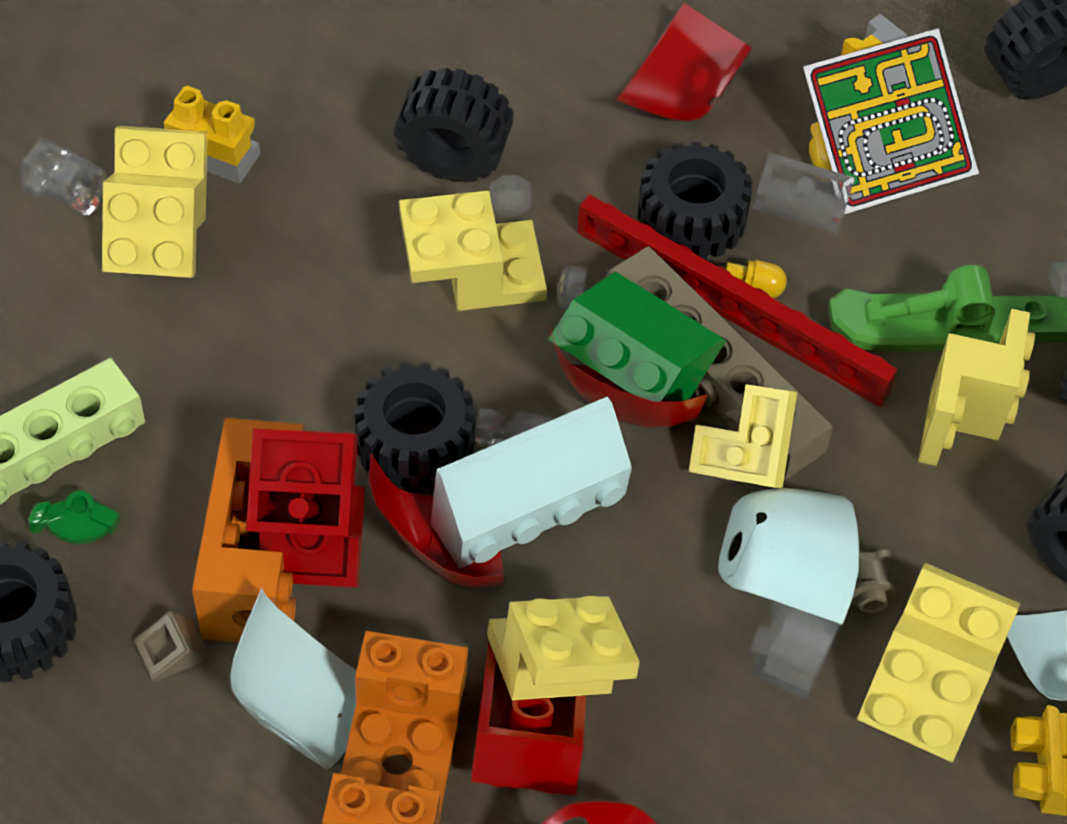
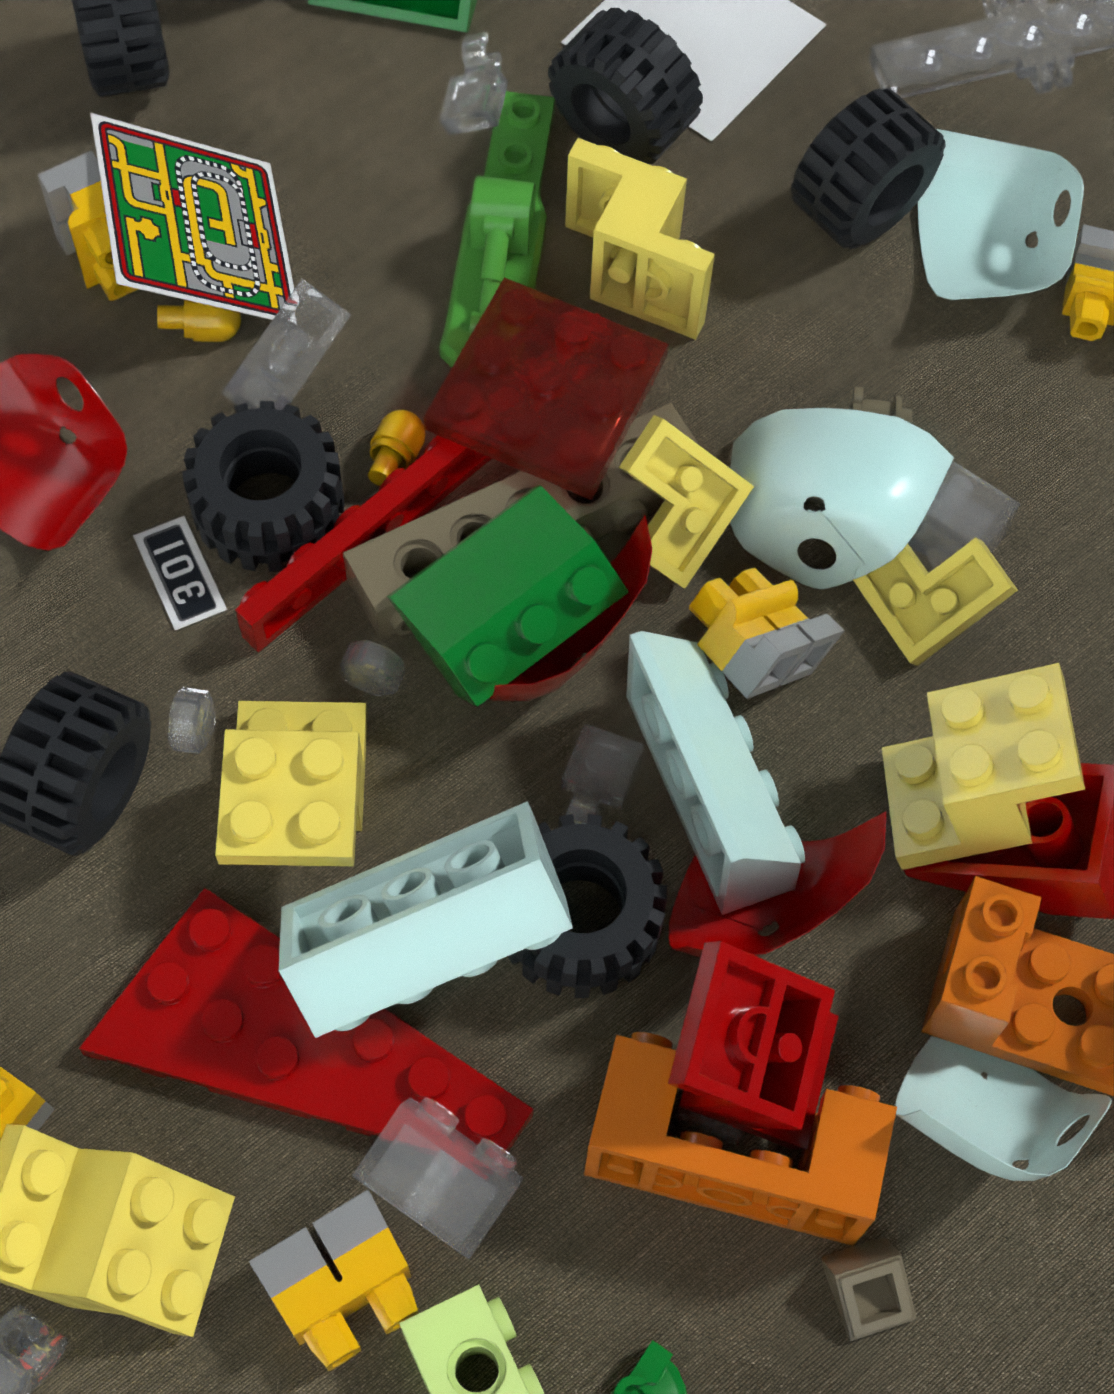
camera: 80 degrees left, 10 degrees up
(144, 329) = (311, 1297): none -> yellow hips
(210, 370) = (439, 1174): none -> clear brick
(304, 284) = (224, 1019): none -> red wing
(374, 318) = (421, 921): none -> light aqua slope
(619, 181) = (179, 573): none -> sticker
(651, 510) = (760, 633): none -> hips
(718, 628) = (935, 607): none -> light yellow plate
(818, 341) = (546, 387): none -> clear red plate
(938, 662) = (1006, 372): light yellow bracket -> none

